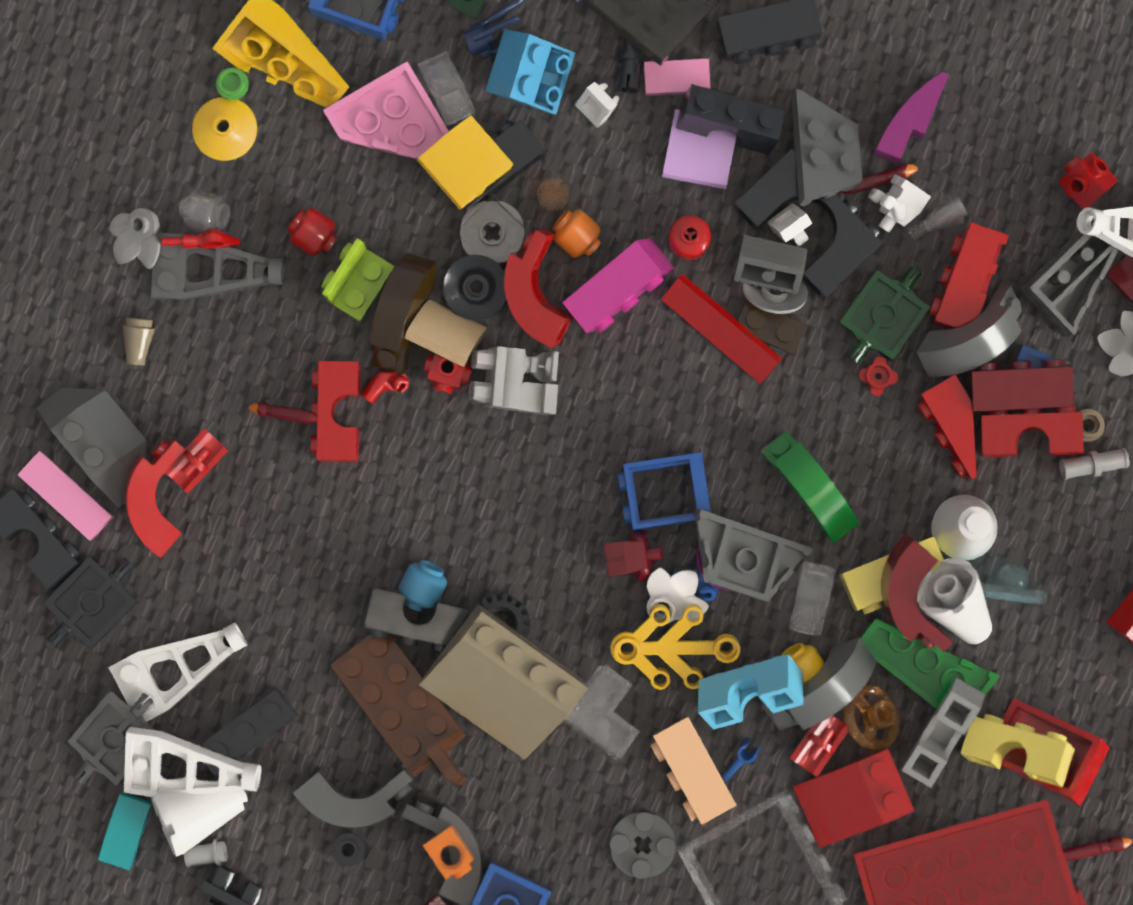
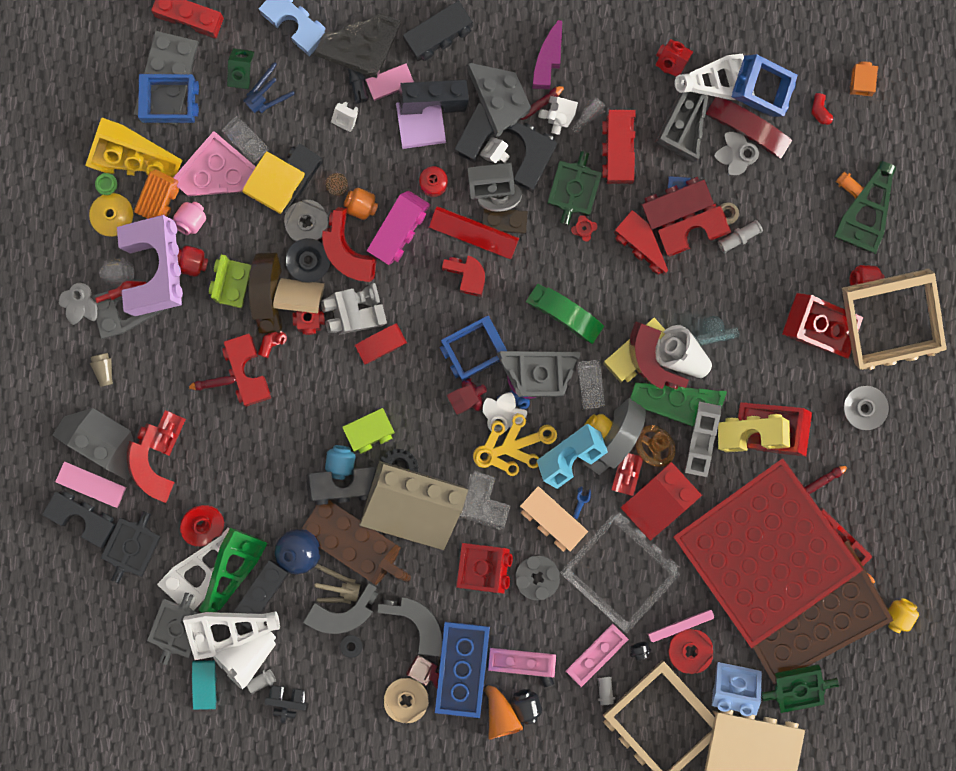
camera: 20 degrees left, 0 degrees up
(199, 618) = (201, 534): none -> red dish
(240, 651) = (238, 544): none -> green plate
(261, 258) = (164, 288): none -> lavender arch
(296, 125) = (157, 195): none -> orange brick
(319, 690) = (297, 551): none -> dark blue cylinder
(331, 171) = (189, 218): none -> bright pink head
(371, 771) = (348, 592): none -> dark tan plant
(445, 838) = (406, 622): orange brick -> none
(478, 555) = (369, 430): none -> lime brick
(530, 71) = (294, 110): dark azure slope -> none
(536, 439) = (380, 344): none -> red slope
(572, 805) = (484, 568): none -> red plate
(699, 388) = (472, 272): none -> red brick
(964, 527) = (672, 305): white cone -> none
(976, 342) = (637, 185): dark grey arch -> none

